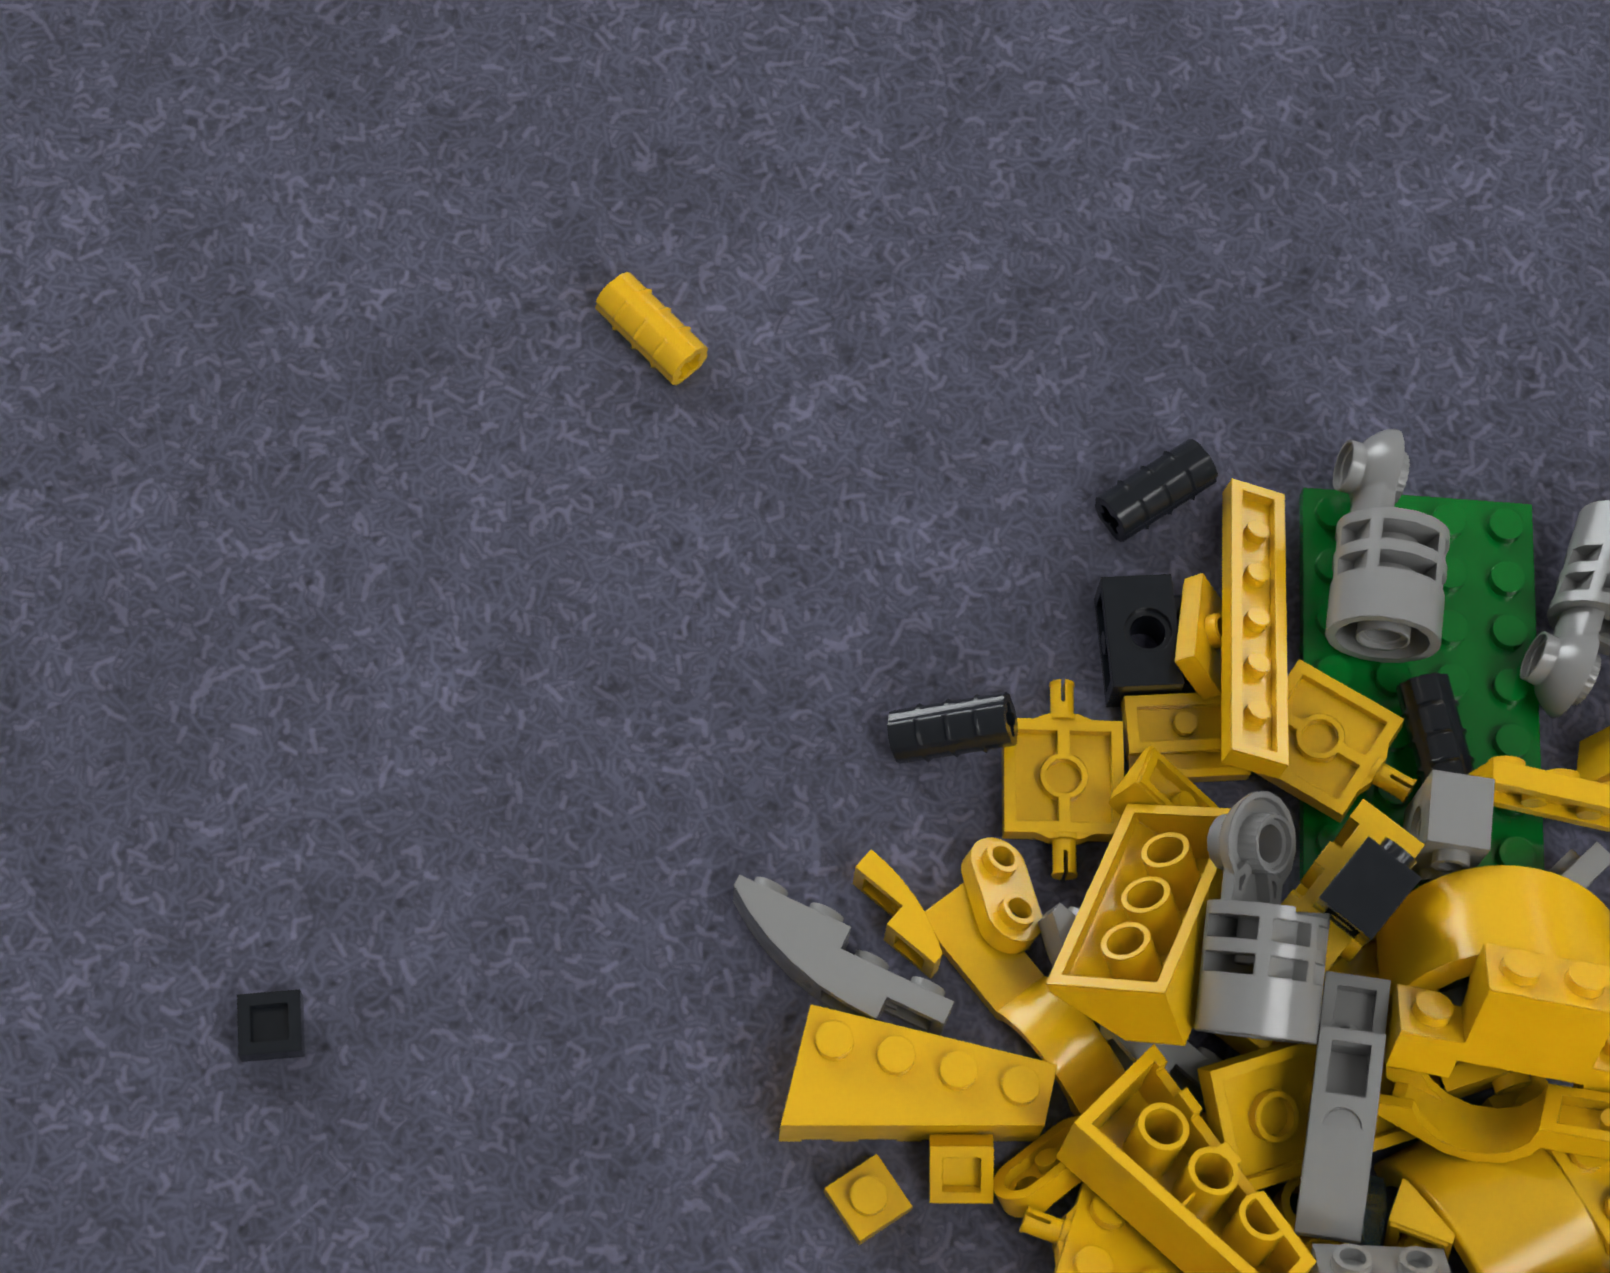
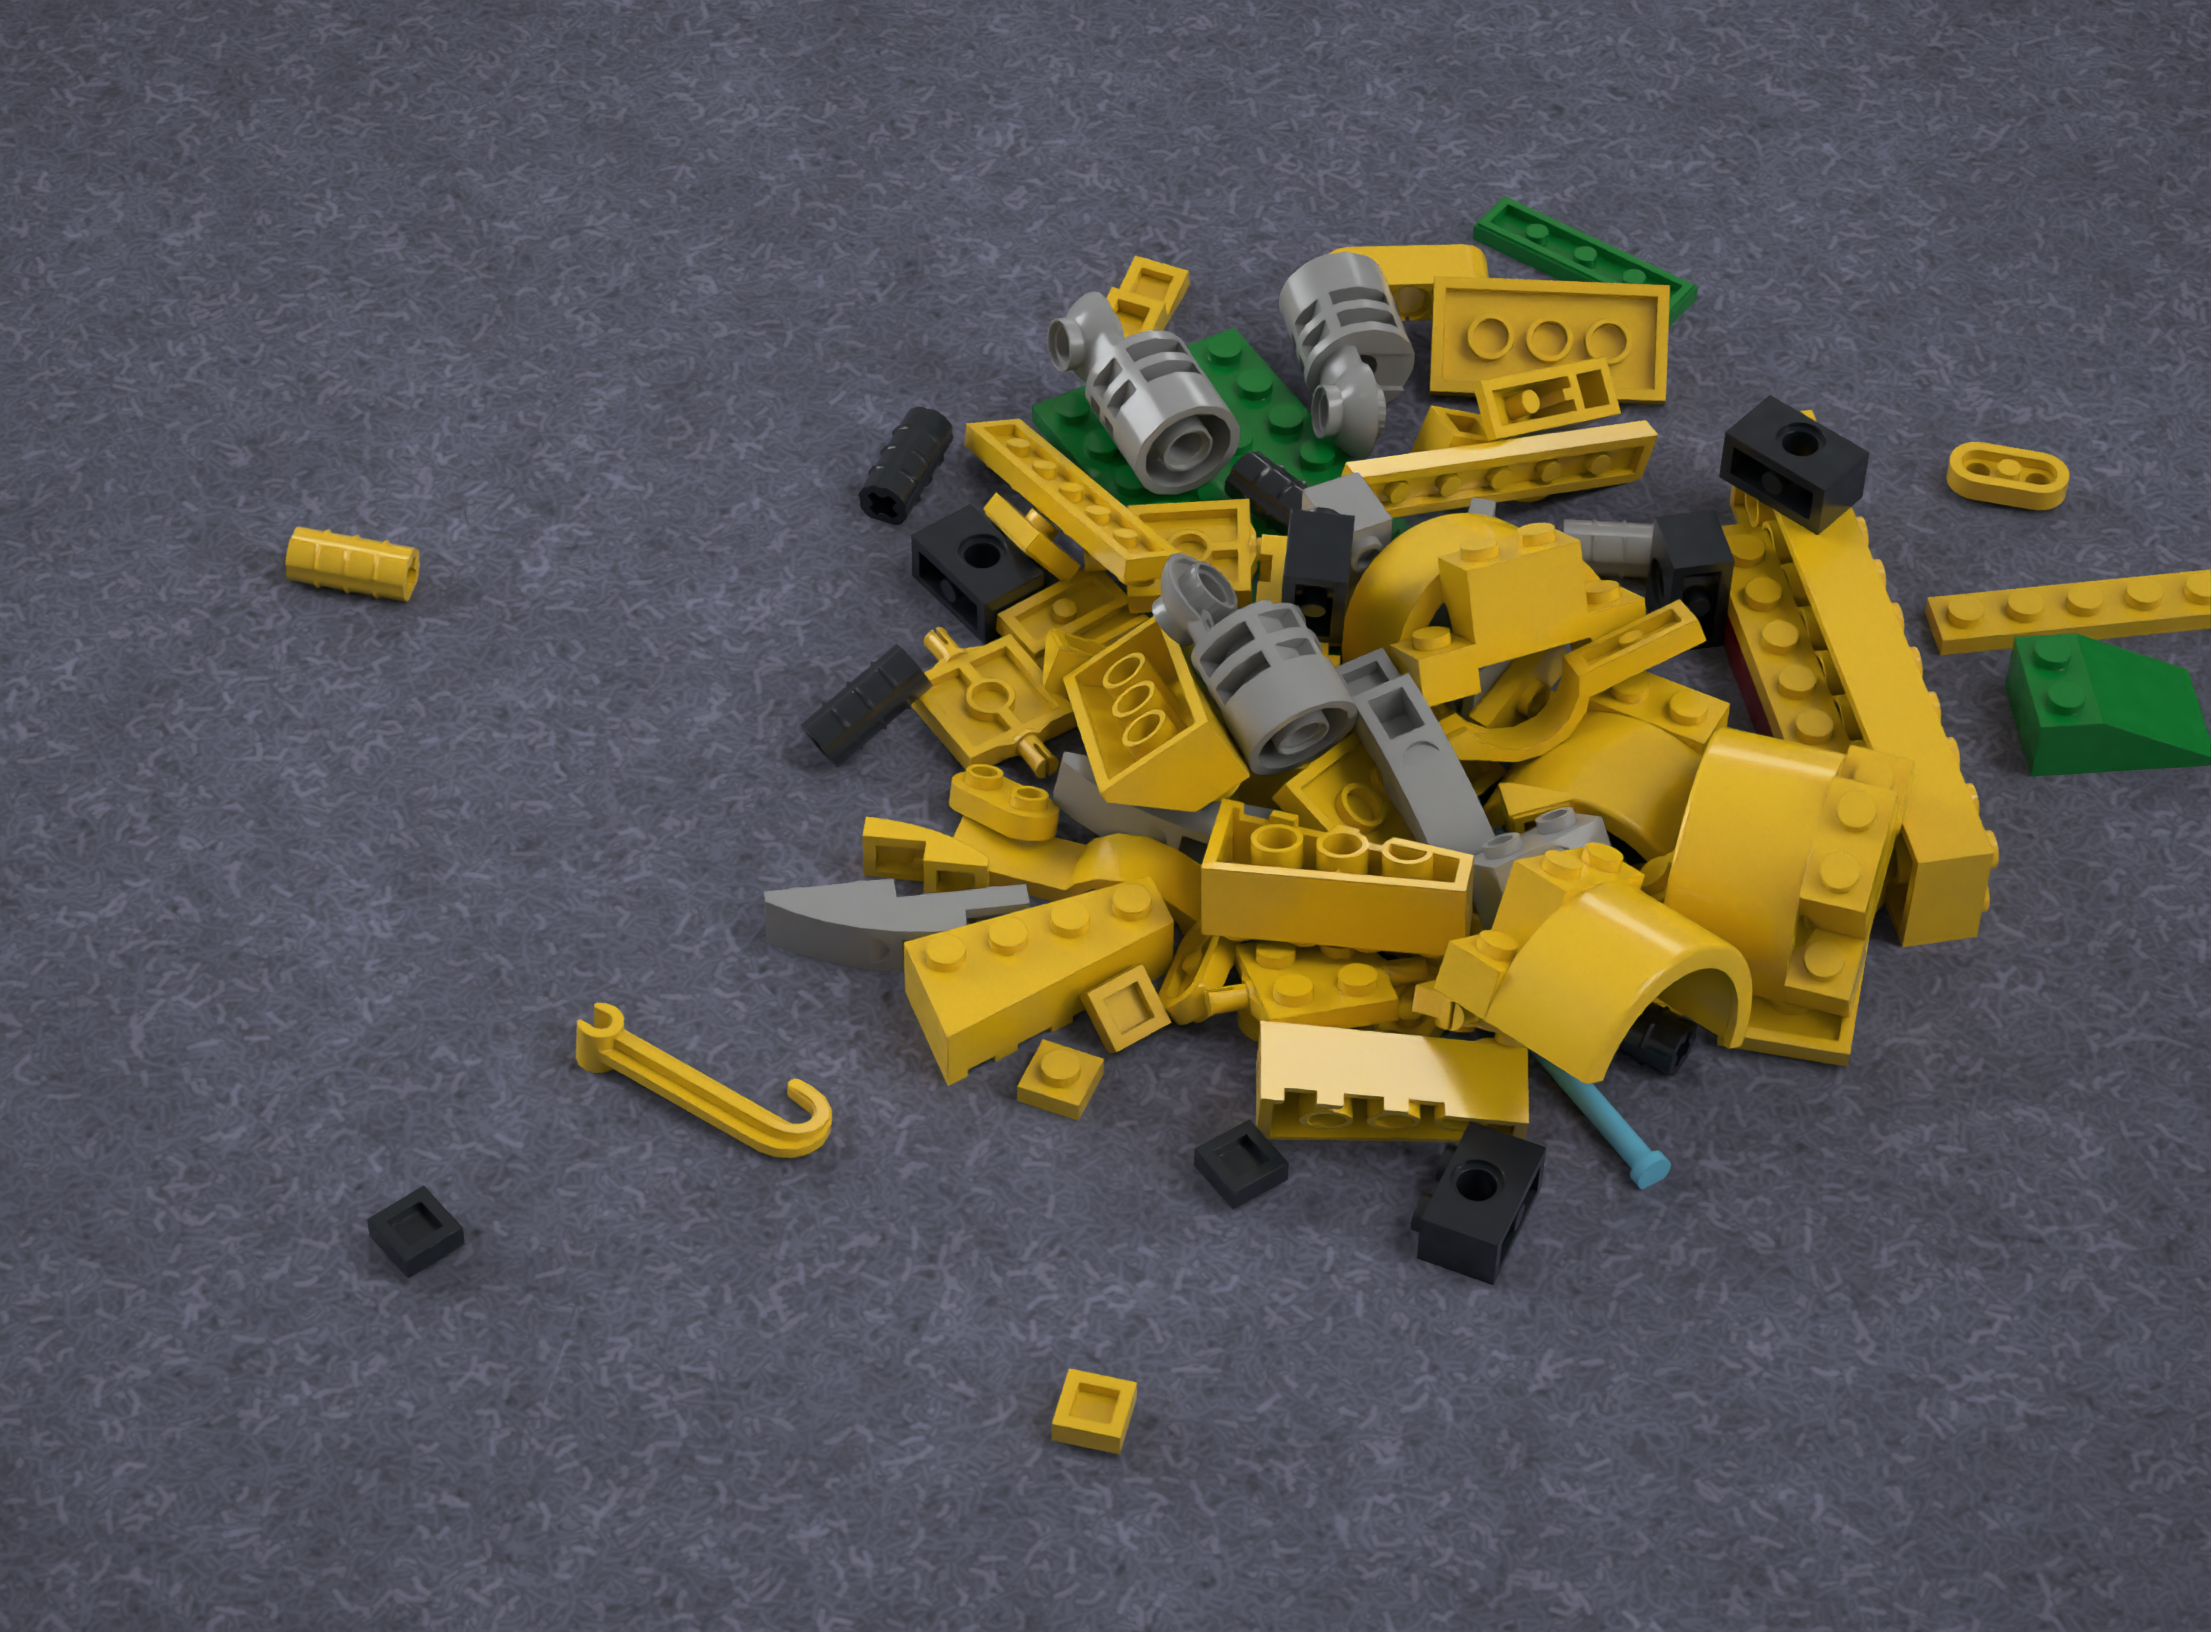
camera: 30 degrees left, 20 degrees down
(576, 1036) = (612, 1047): none -> yellow piece
(1468, 433) = (1148, 295): none -> yellow slope

